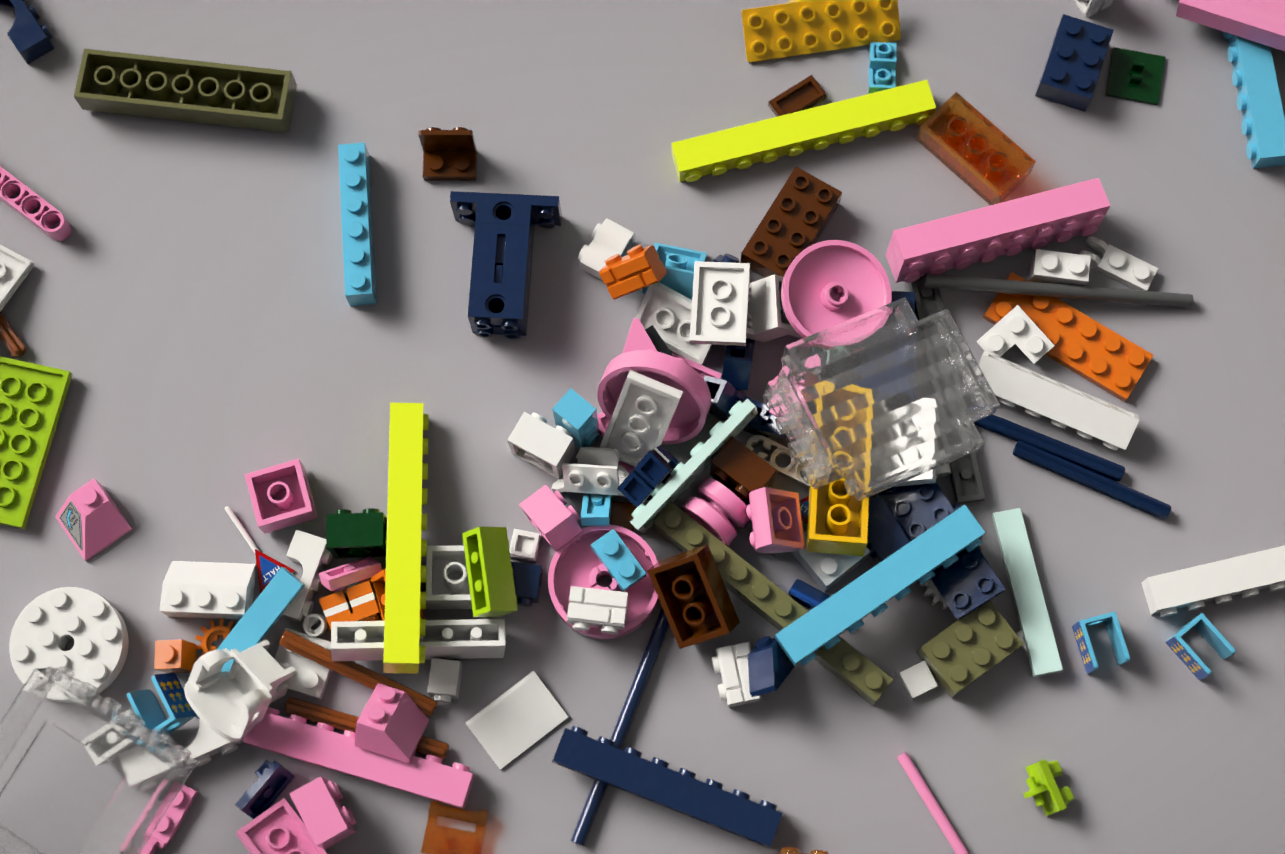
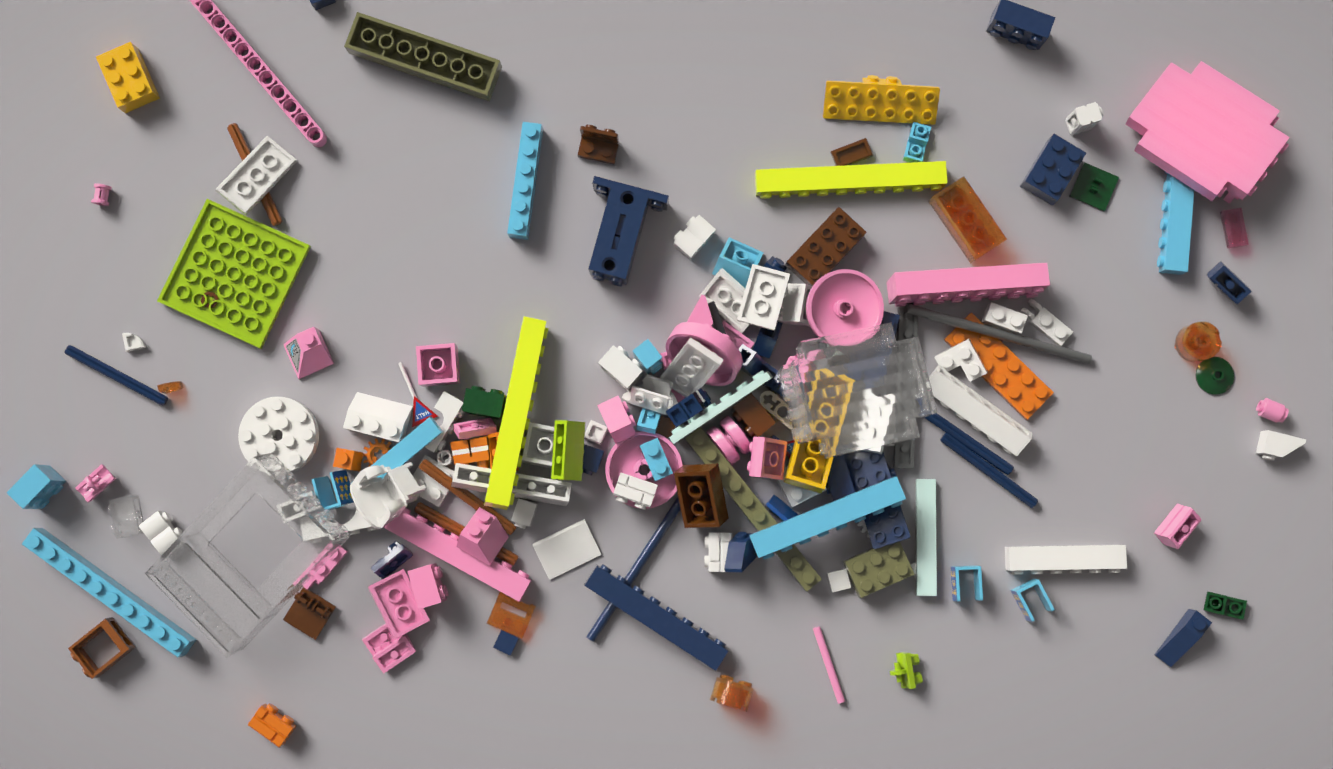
camera: 10 degrees right, 10 degrees up
(632, 271) = (708, 260): orange brick -> none

